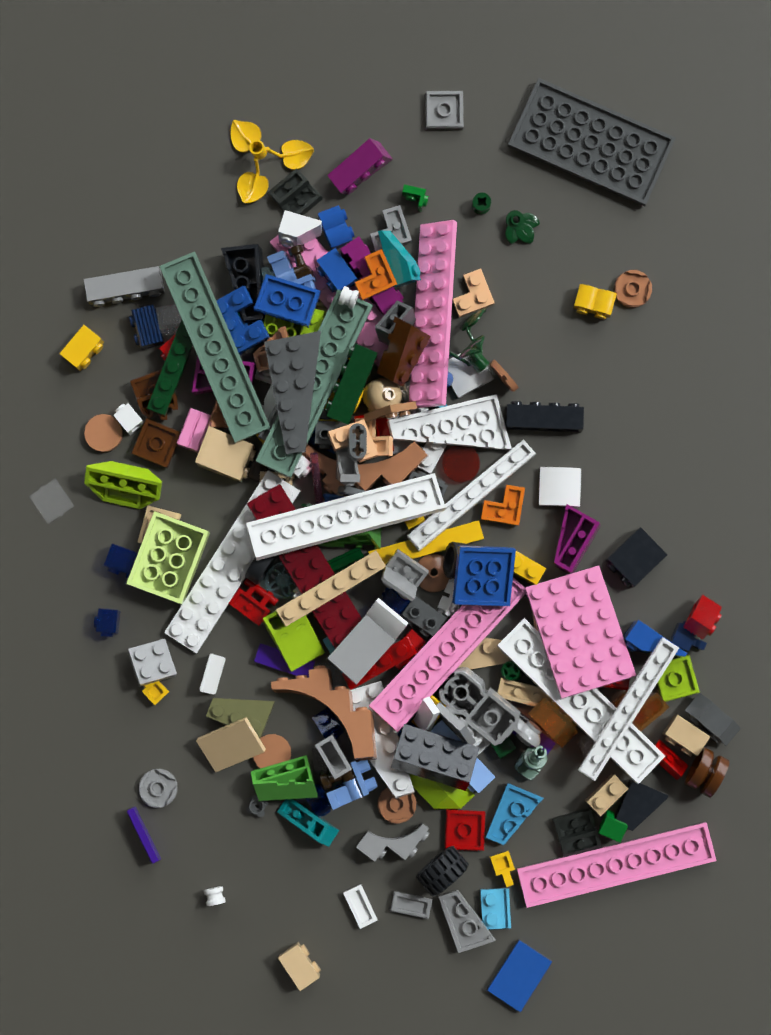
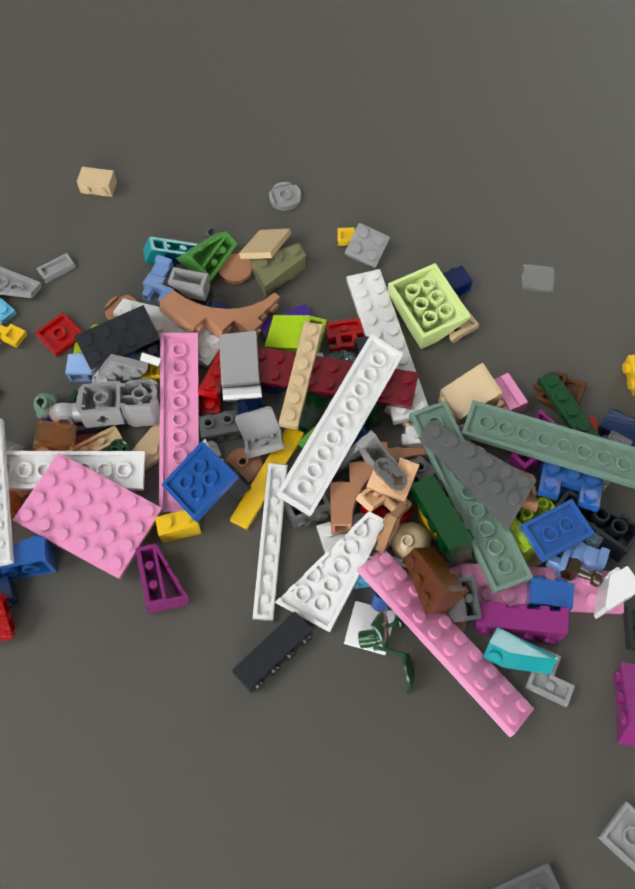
camera: 135 degrees right, 20 degrees down
(103, 433) = (560, 341): nougat tile -> none
(107, 622) = (420, 244): clear blue brick -> none
(123, 484) = (512, 320): lime wedge -> none
(128, 418) = (556, 361): white brick -> none
(143, 835) = (265, 166): dark purple tile -> none
(156, 443) = (521, 365): reddish brown plate -> none
(212, 674) = (323, 274): white slope -> none
(214, 896) = (187, 172): white wheel -> none
(316, 478) = (393, 440): clear pink bar -> none
(335, 227) = (590, 634): blue brick -> none
(348, 297) = (518, 574): white wheel -> none
(360, 906) = (90, 241): white tile -> none
(380, 278) = (514, 620): orange plate -> none
(404, 846) = (93, 289): light grey arch -> none
(412, 193) = (569, 726): green bracket -> none
(442, 871) = (48, 290): black tyre -> none
(461, 463) = (301, 554): clear red tile -> none
(478, 296) = (425, 698): light nougat plate -> none
(481, 207) = (504, 782): dark green wheel -> none
(503, 375) = (338, 650): nougat tile -> none
(508, 511) = (231, 555): orange plate -> none
(511, 812) = (35, 369): dark azure wing -> none
(522, 229) = (453, 797): dark green plate -> none
(560, 486) = (208, 612): white slope -> none
(594, 301) = (329, 795): yellow brick -> none
(633, 288) = (308, 846): nougat tile -> none
(635, 558) = (94, 616): black brick -> none

